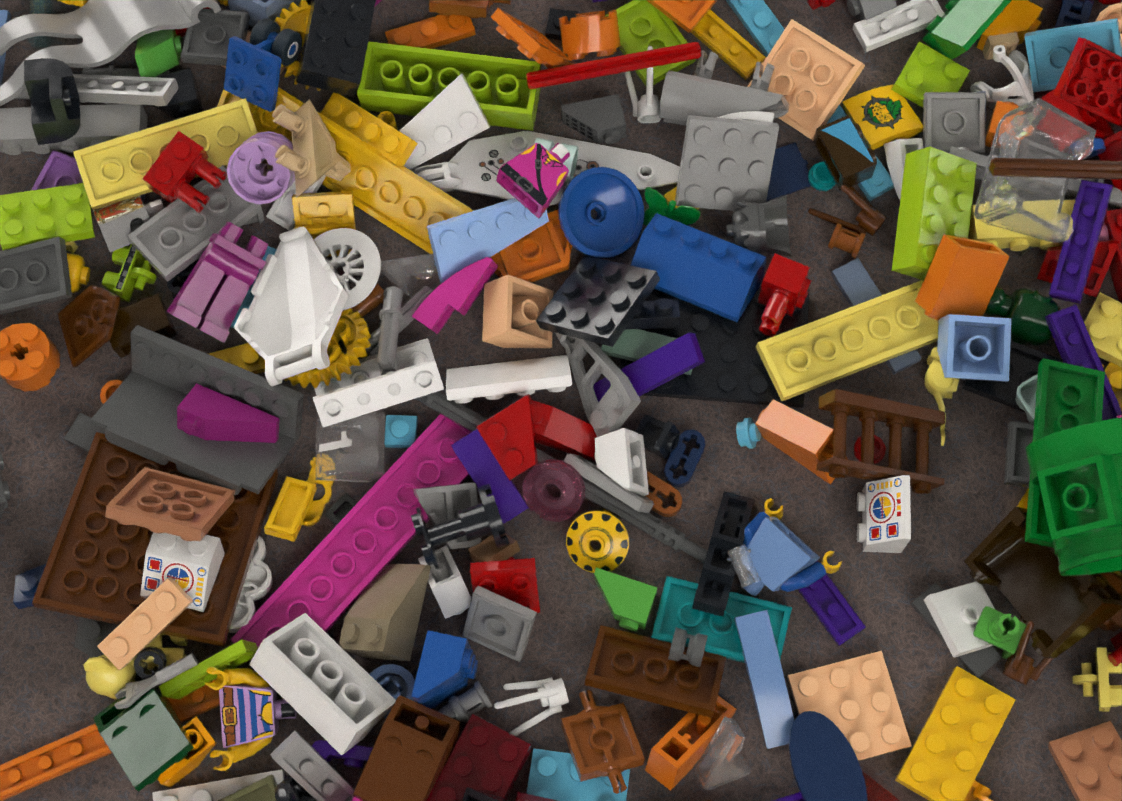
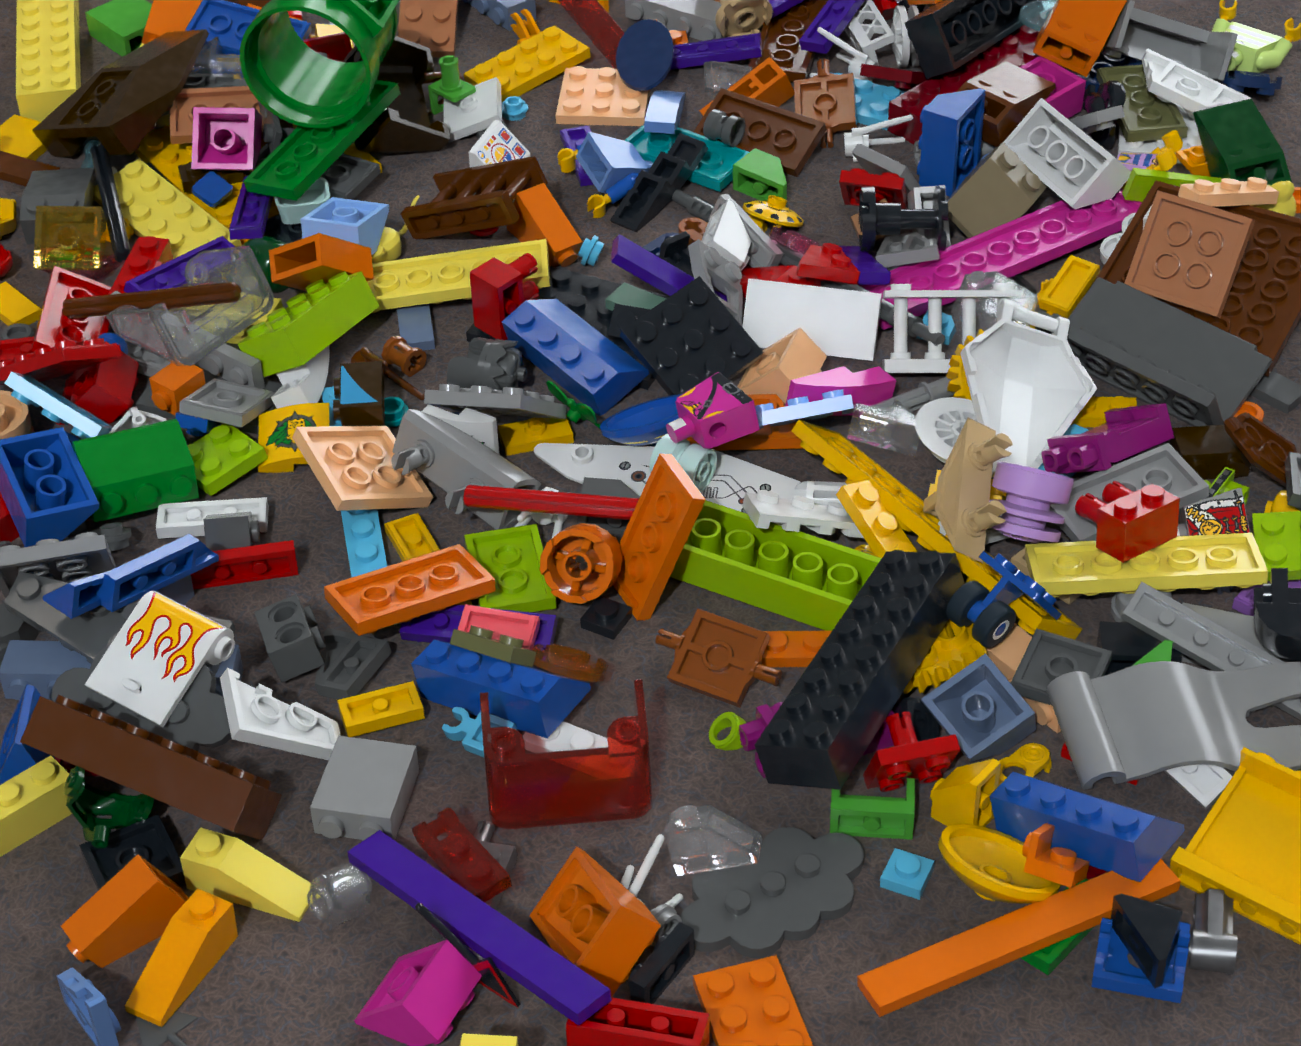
camera: 165 degrees left, 30 degrees down
(135, 690) = (1238, 173): light grey piece -> none
(224, 419) = (1135, 336): magenta slope -> none
(390, 317) = (919, 383): light grey axle -> none
(743, 565) = (646, 149): clear pin -> none
(924, 658) = (514, 108): none -> medium azure plate

